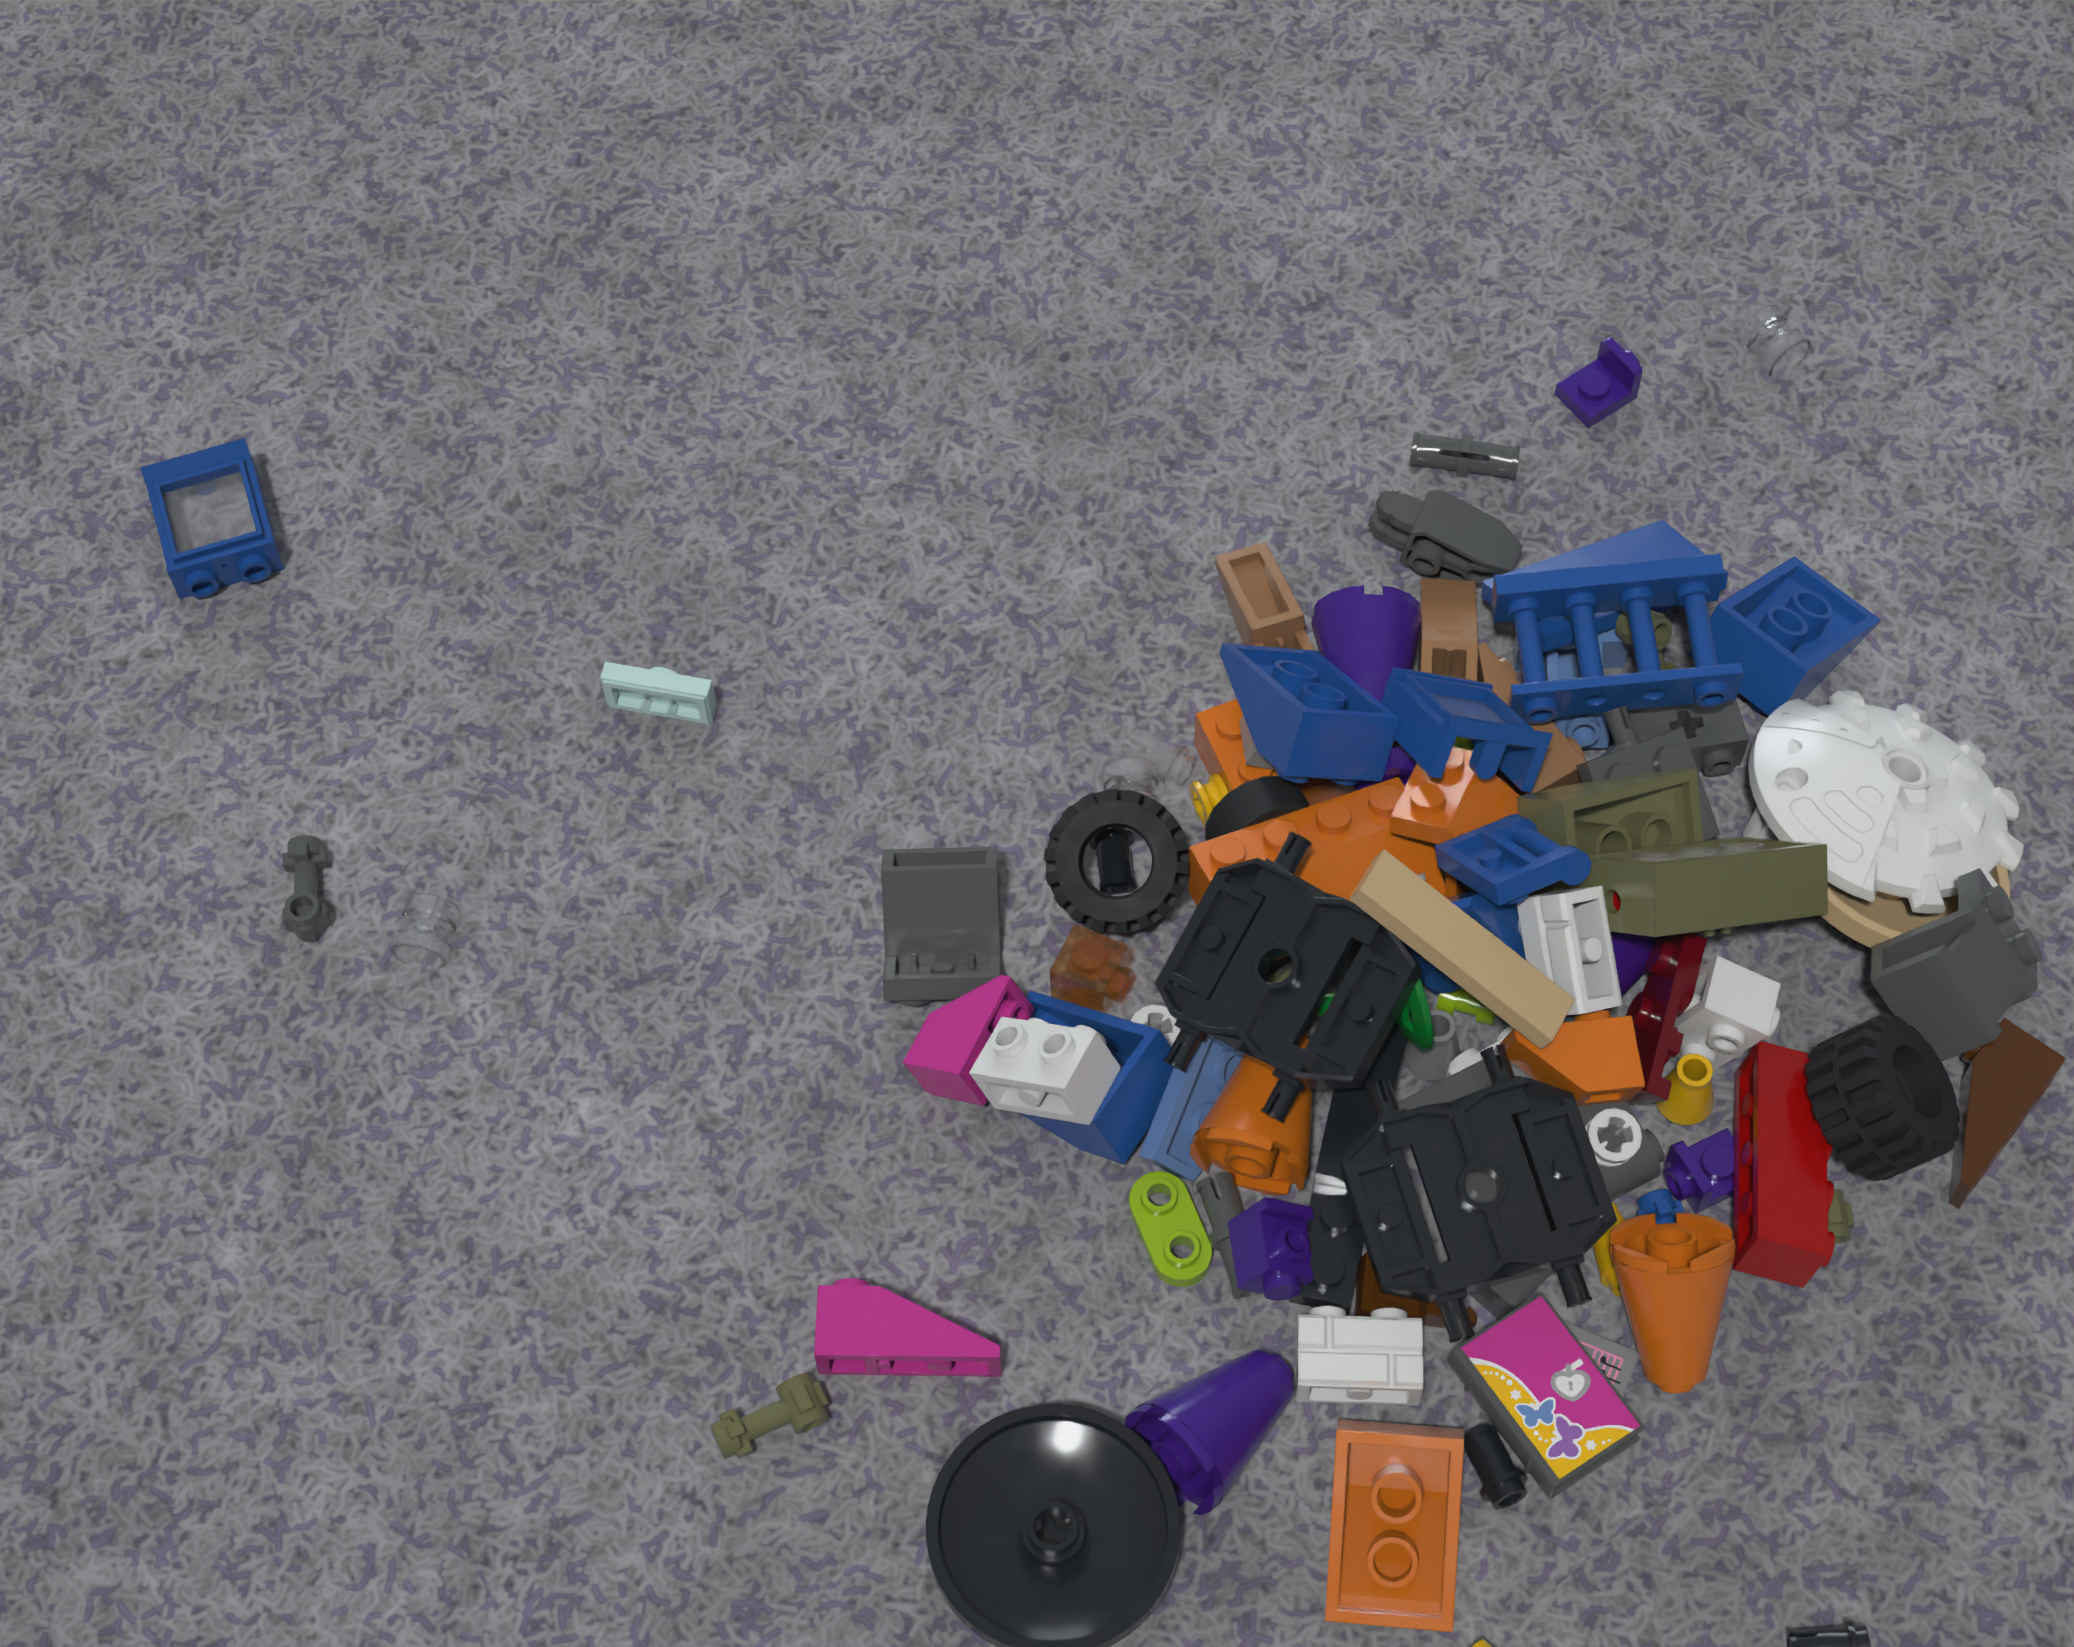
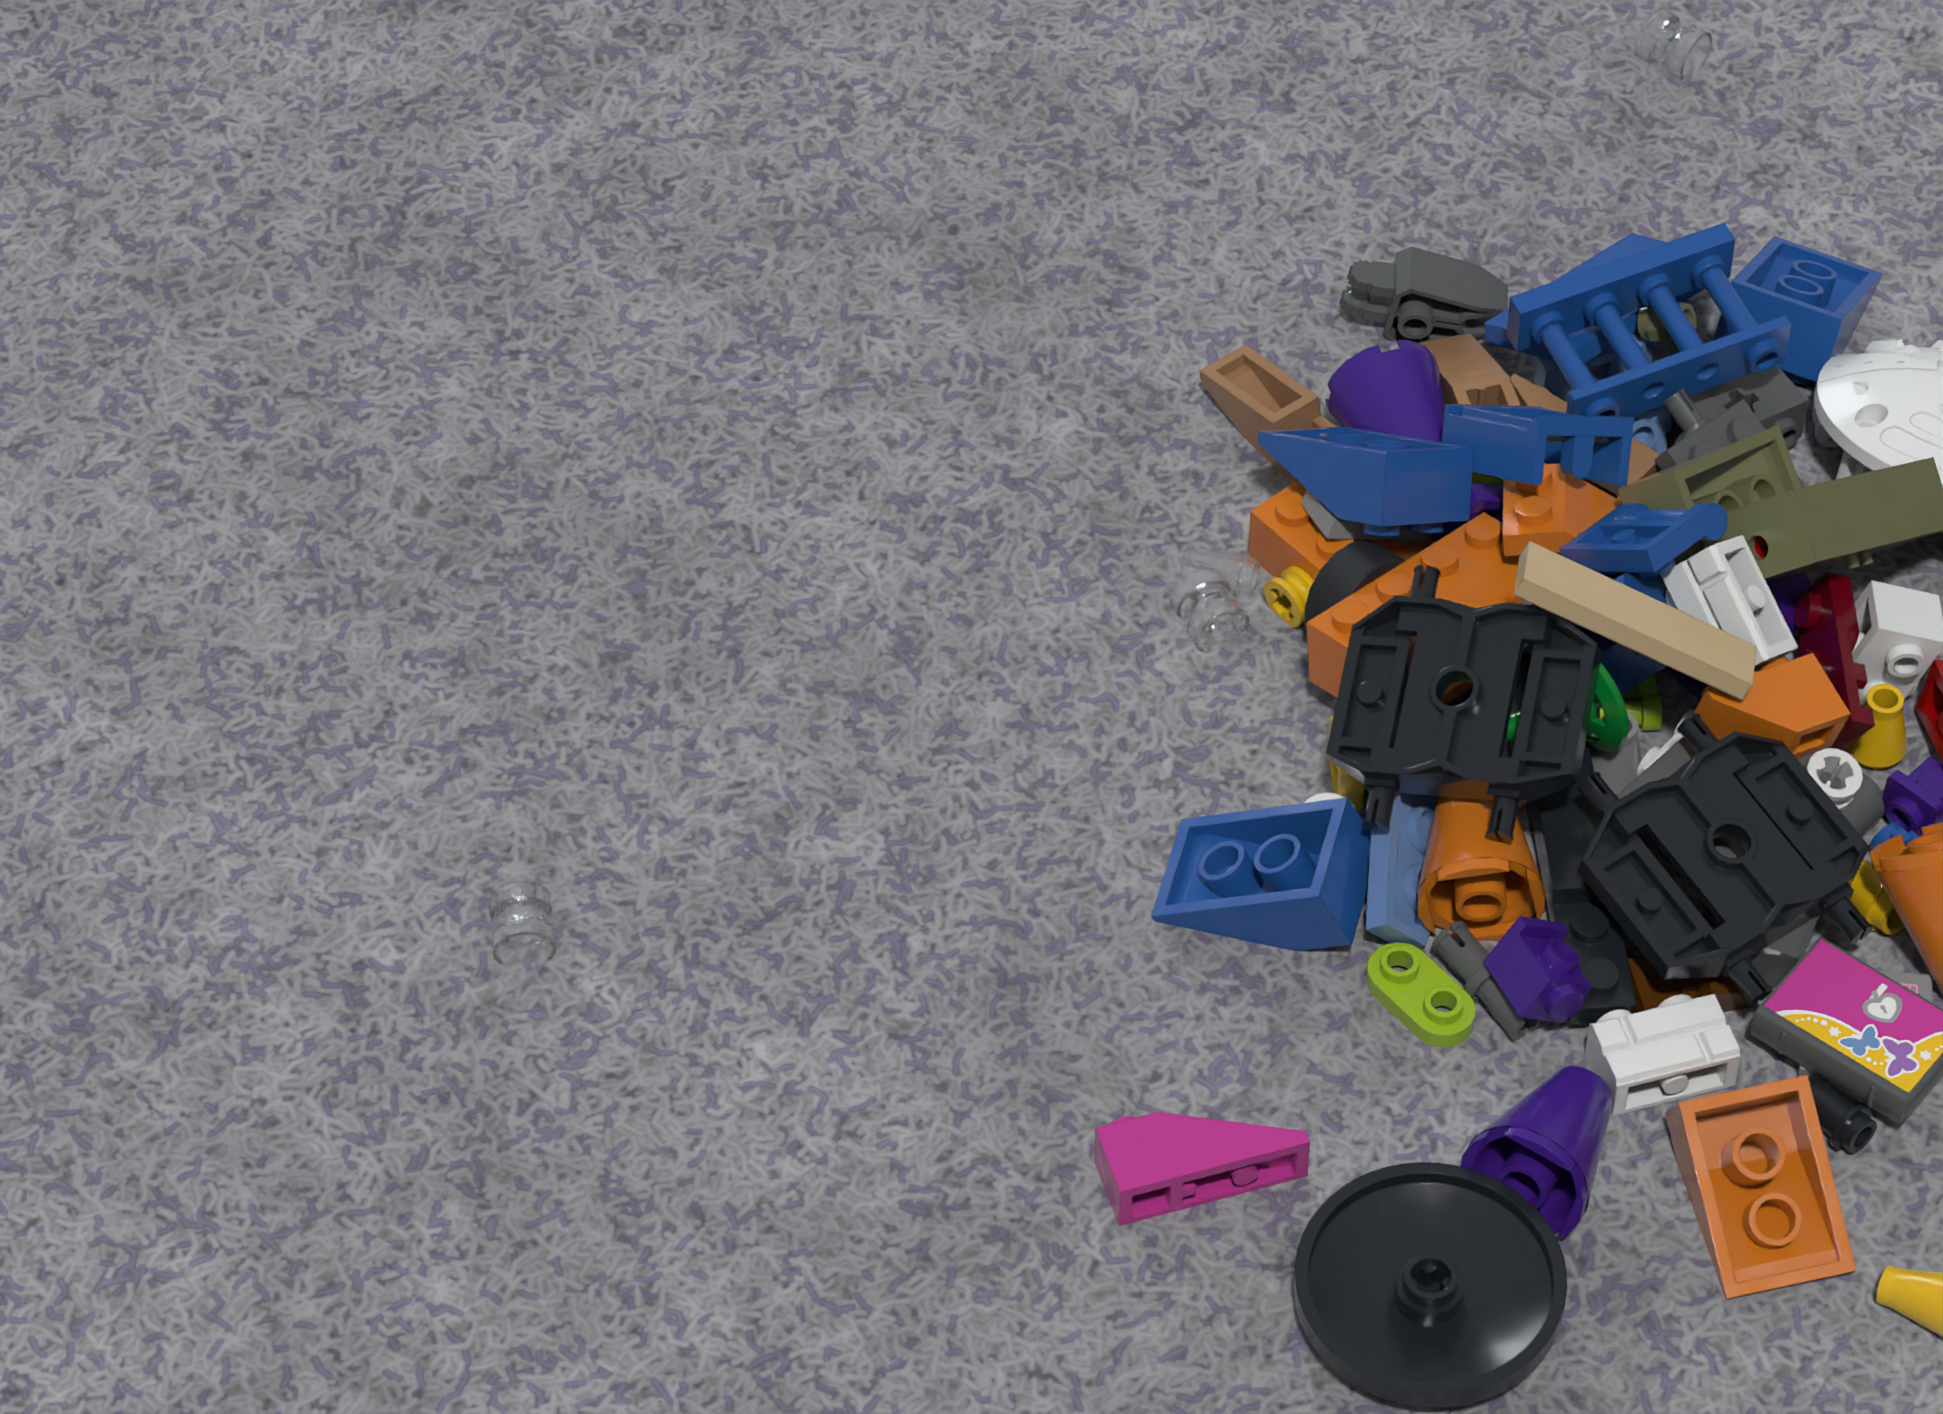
camera: 20 degrees left, 10 degrees down
(212, 519) = (102, 595): blue window -> none
(302, 910) = (382, 938): dark grey bar -> none
(659, 692) = (671, 639): light aqua plate -> none
(800, 1404) = (1113, 1252): olive bar -> none
(939, 922) = (1068, 775): dark grey piece -> none
(957, 1034) = (1146, 873): dark pink slope -> none
(1045, 1069) = (1247, 864): white brick -> none
(1066, 868) = (1259, 625): black tyre -> none
(1091, 970) = (1242, 773): clear orange brick -> none
(1114, 860) = (1208, 662): black pin -> none
(1427, 448) = (1409, 222): dark grey pin -> none
(1602, 384) = (1520, 123): dark purple bracket -> none

